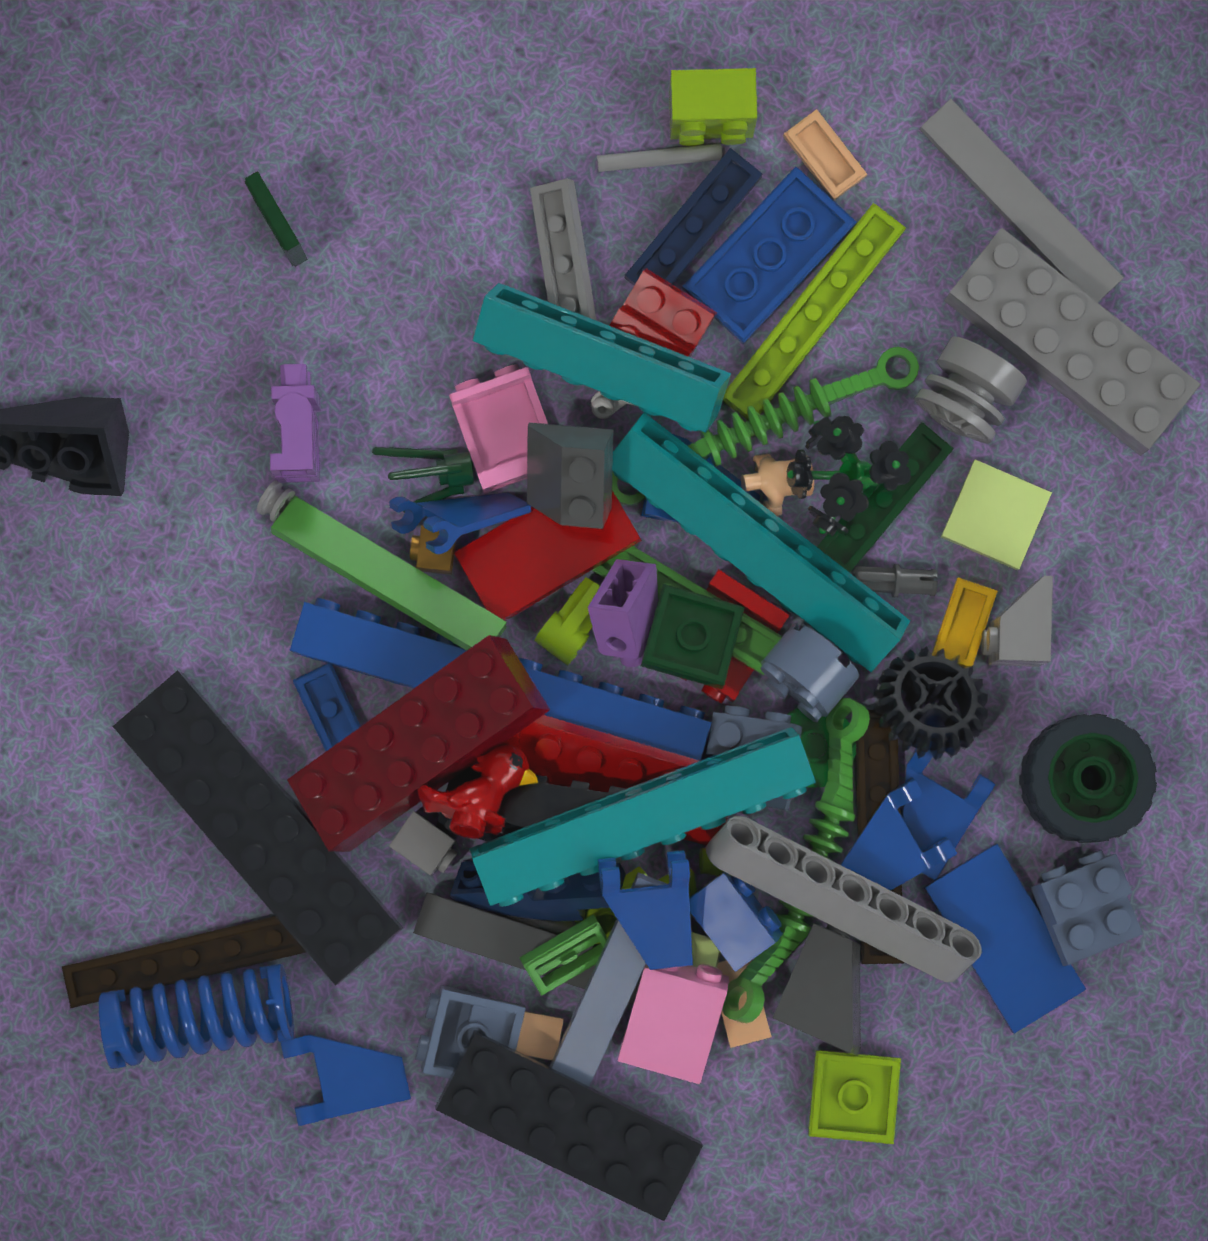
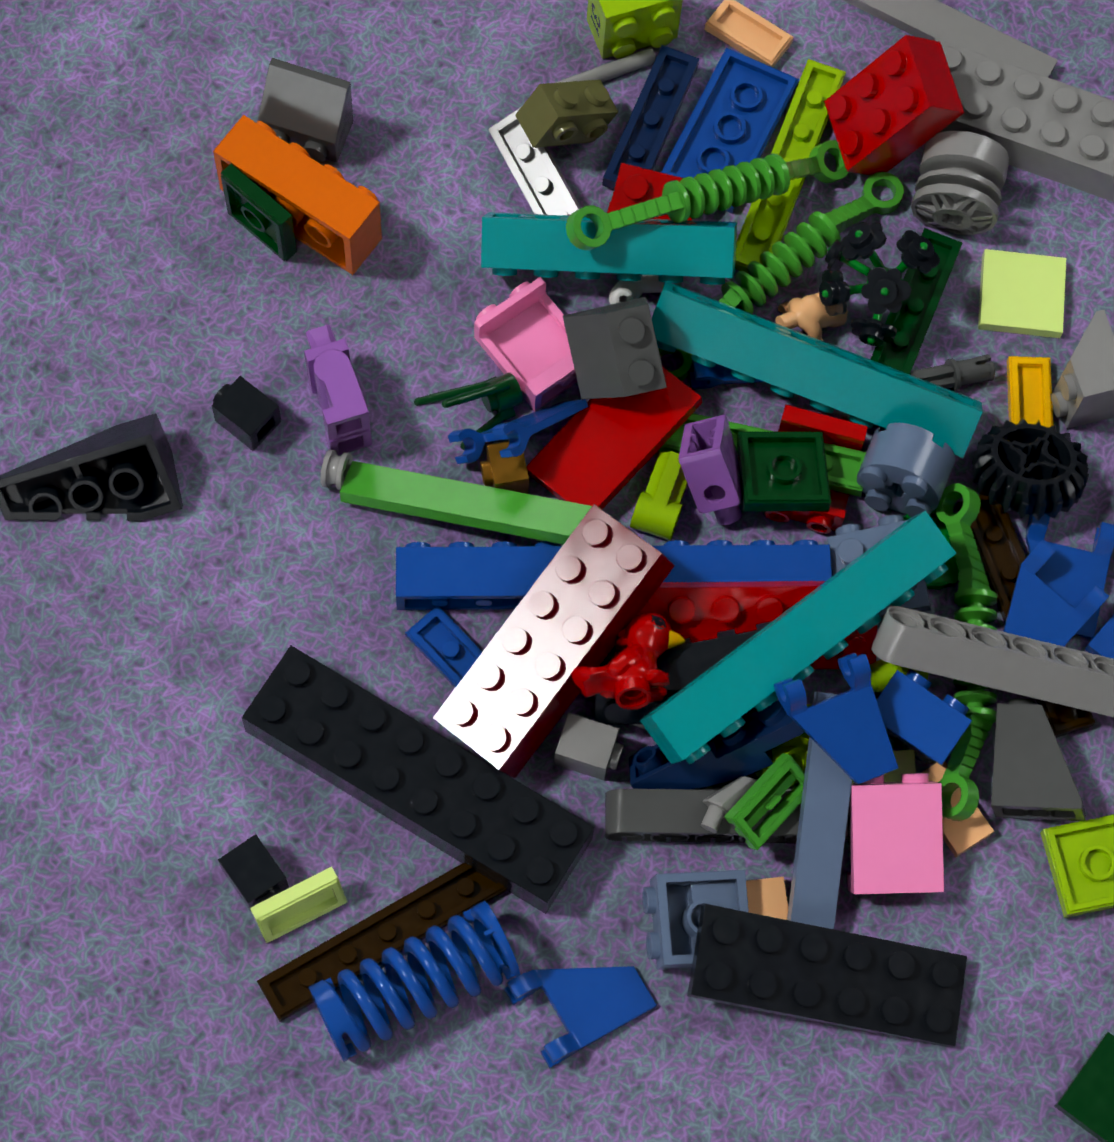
camera: 20 degrees left, 15 degrees down
(86, 871) = (253, 872): none -> black brick
(117, 911) = (299, 904): none -> yellowish green tile
(206, 418) = (245, 412): none -> black brick
(316, 207) = (324, 207): none -> orange brick
(352, 124) = (307, 109): none -> dark grey slope
(527, 940) = (723, 800): none -> light grey bar
(608, 201) = (566, 113): none -> olive brick
(720, 339) = (710, 192): none -> bright green piece
(929, 294) = (894, 106): none -> red brick

